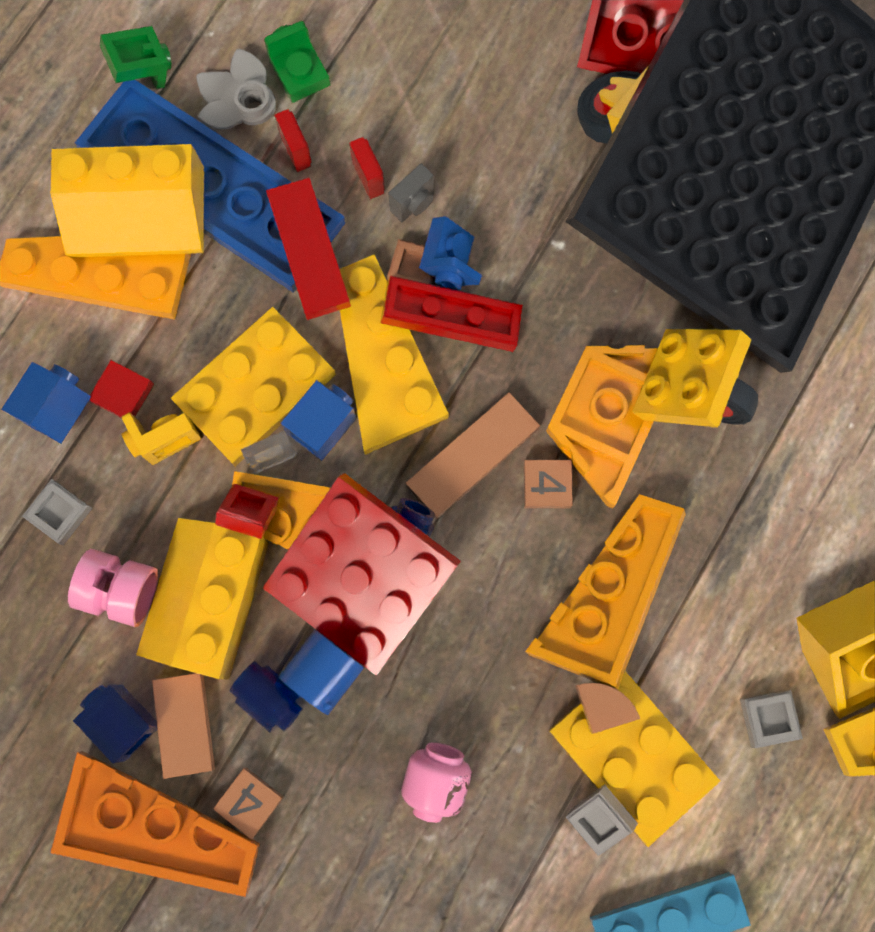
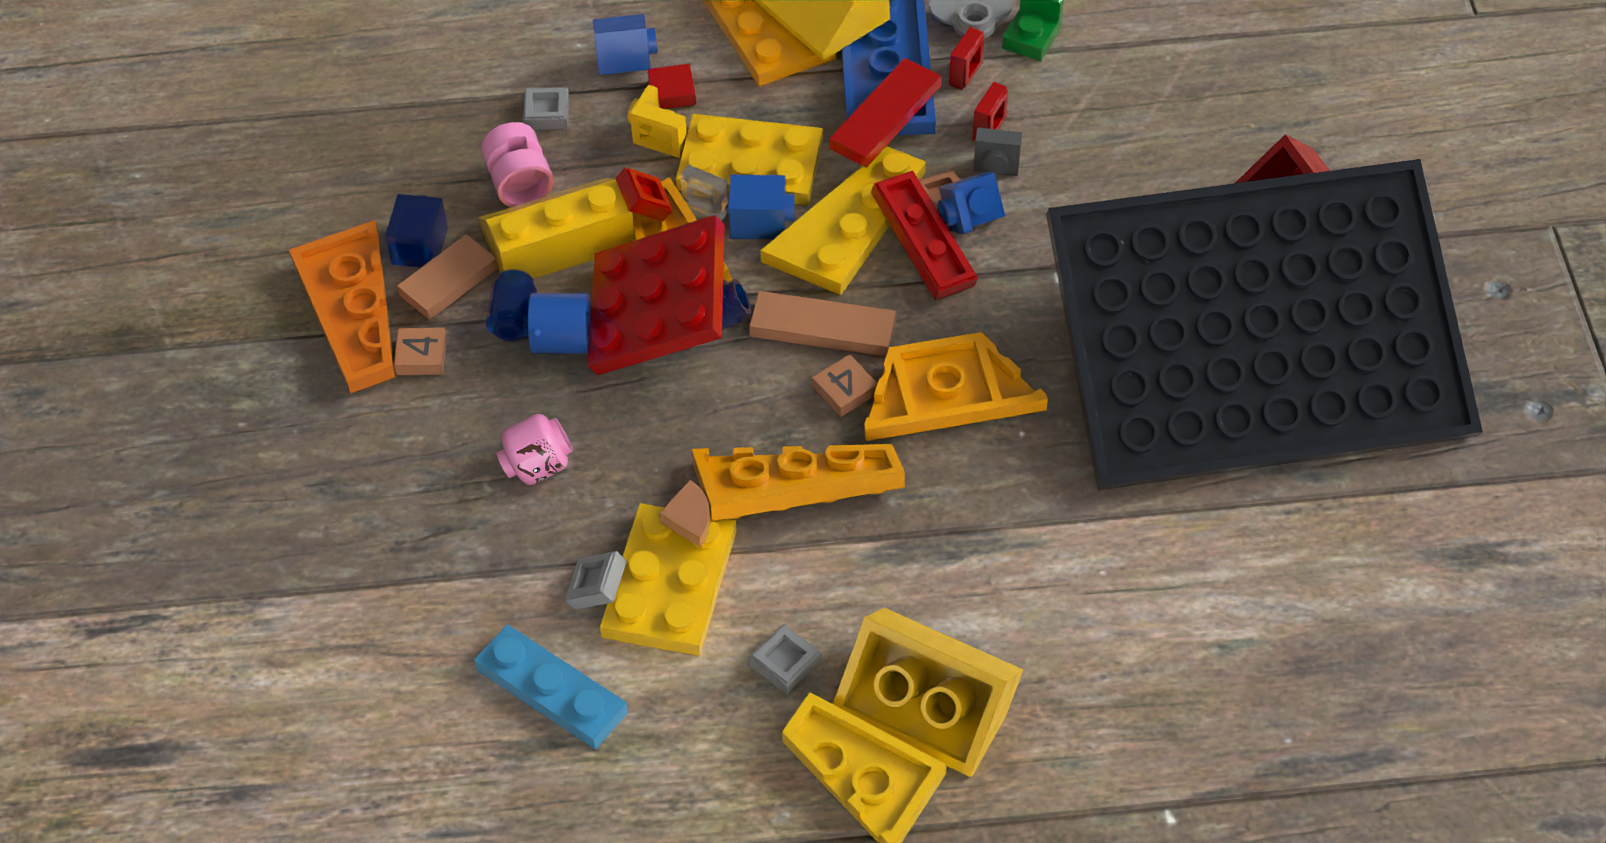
camera: 55 degrees right, 25 degrees down
(698, 380) = (1016, 410): yellow plate -> none

